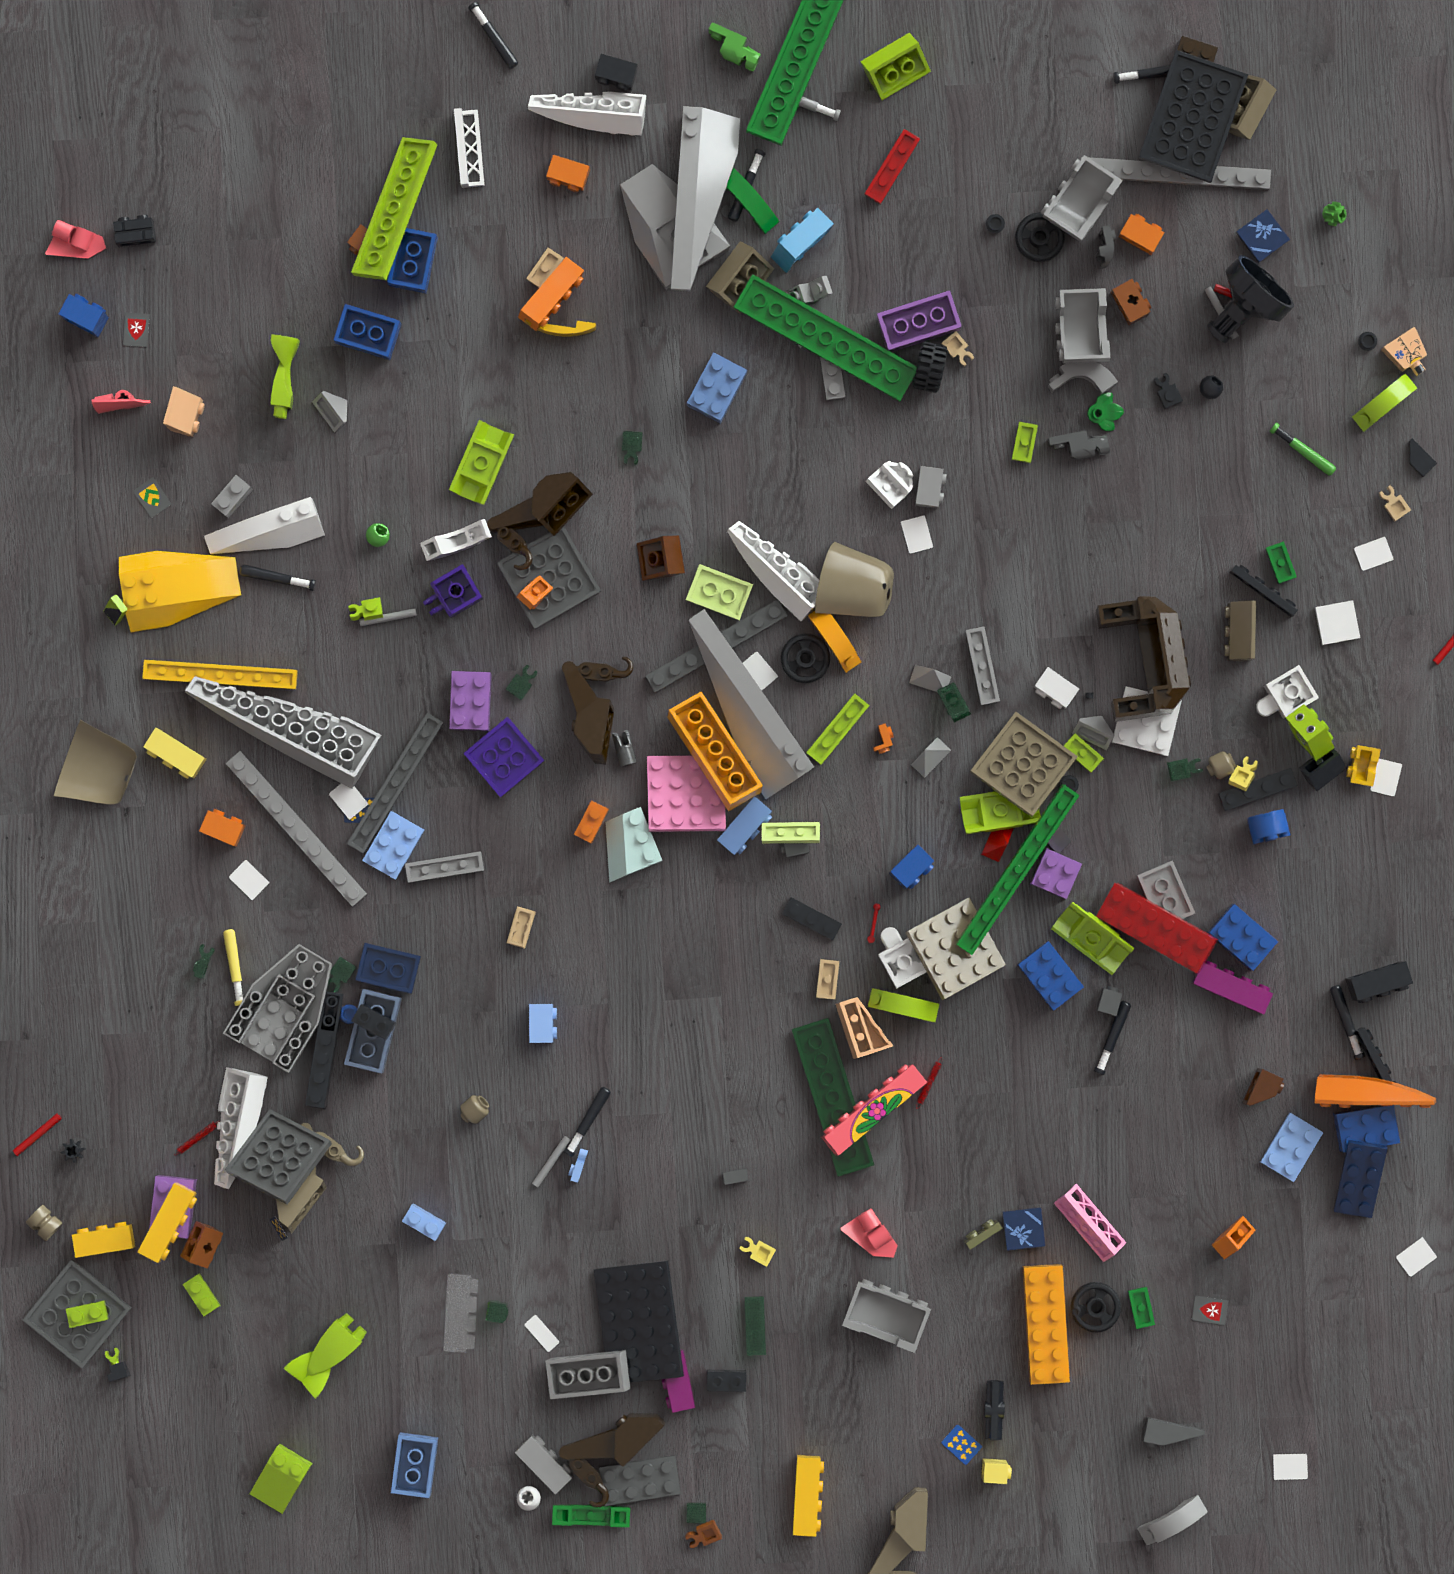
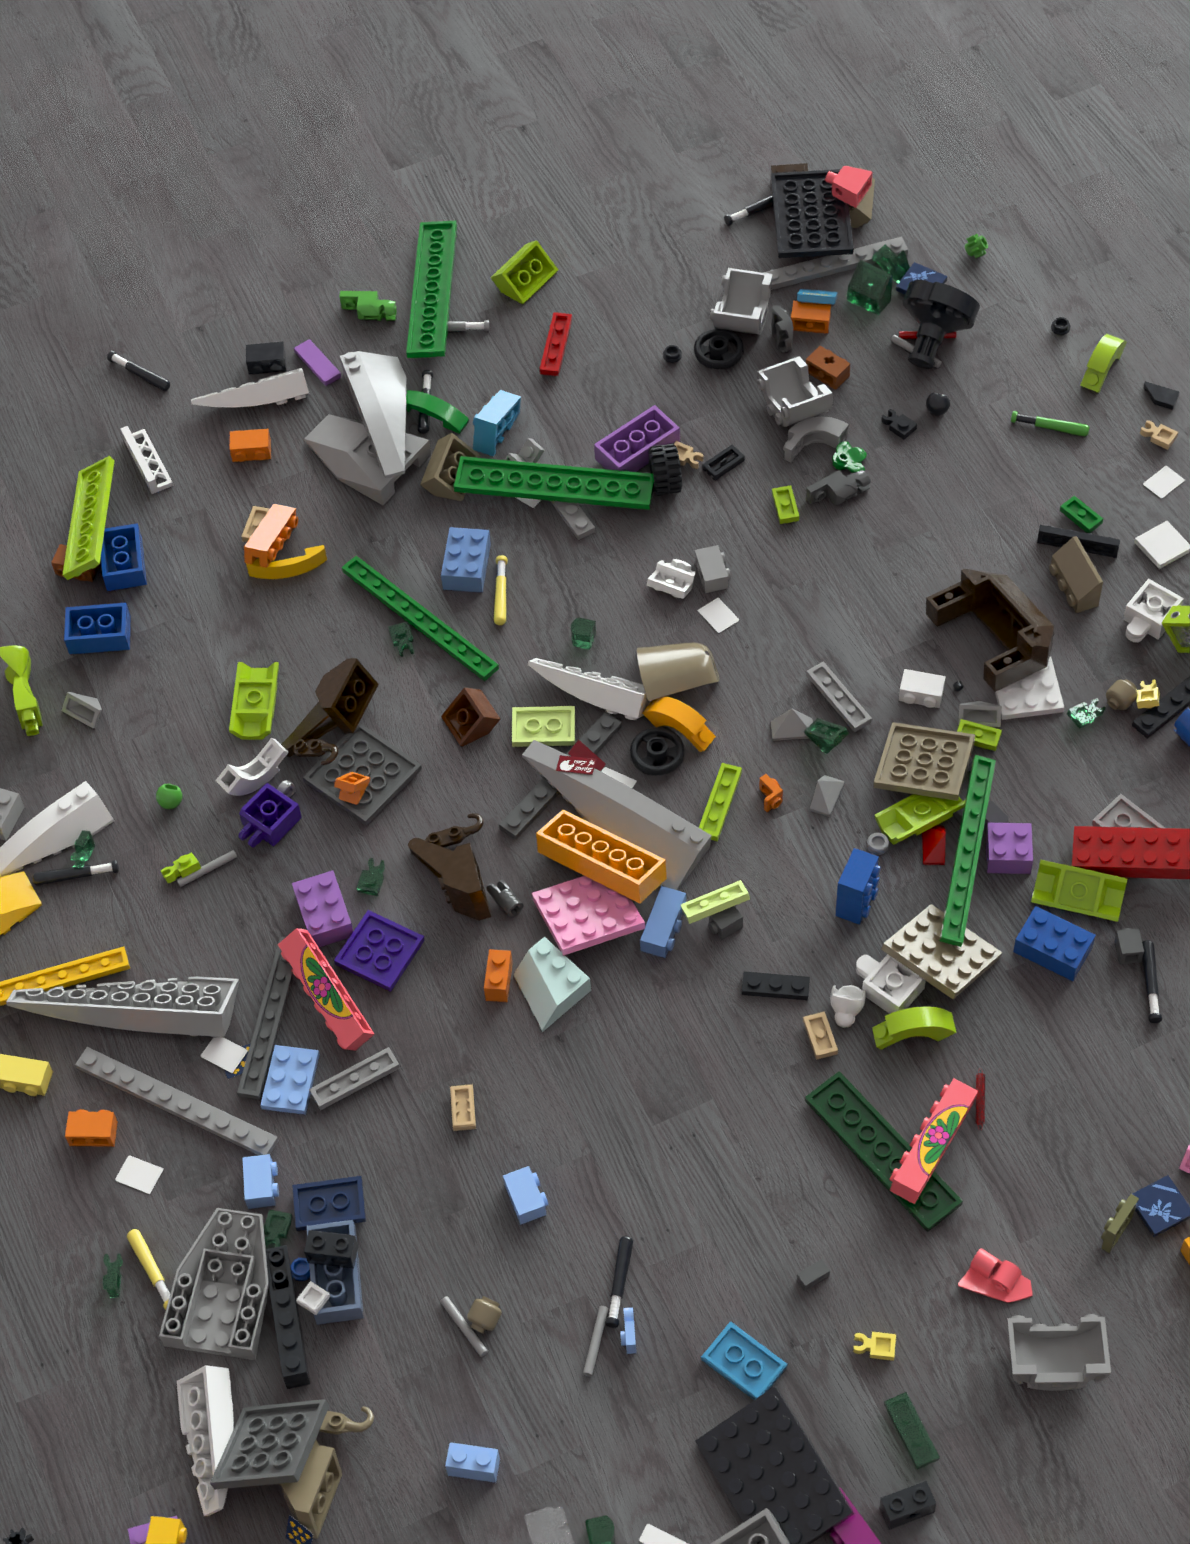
camera: 20 degrees left, 30 degrees down
(184, 1148) = (166, 1477): red piece -> none
(290, 558) = (83, 849): none -> clear green plate
(340, 928) = (259, 1181): none -> light blue brick
(347, 1052) = (313, 1298): none -> white tile
(446, 782) = (325, 989): none -> coral brick
(456, 1110) = (464, 1326): none -> light grey bar
(477, 569) = (287, 788): none -> light grey tile
(654, 432) = (420, 618): none -> green plate
(655, 1222) = (744, 1361): none -> dark azure tile
(663, 94) = (317, 362): none -> medium lavender tile
(728, 653) = (576, 764): none -> dark red sticker
(730, 446) = (500, 592): none -> light yellow piece
(743, 641) = (583, 751): none -> dark red sticker
(789, 510) = (583, 632): none -> clear green piece
(860, 1029) = (880, 1068): light nougat wedge -> none
(868, 958) = (847, 1004): none -> white piece
(876, 907) = (839, 950): red hinge -> none
(952, 821) = (877, 843): none -> light grey tile
(993, 376) = (725, 464): none -> black tile
(1156, 215) = (817, 296): none -> dark azure tile
(1208, 228) = (870, 288): none -> clear green slope
(1241, 103) = (850, 184): none -> coral torso
(1246, 202) = (891, 262): none -> clear green slope
(1406, 352) = (1100, 319): light nougat torso -> none

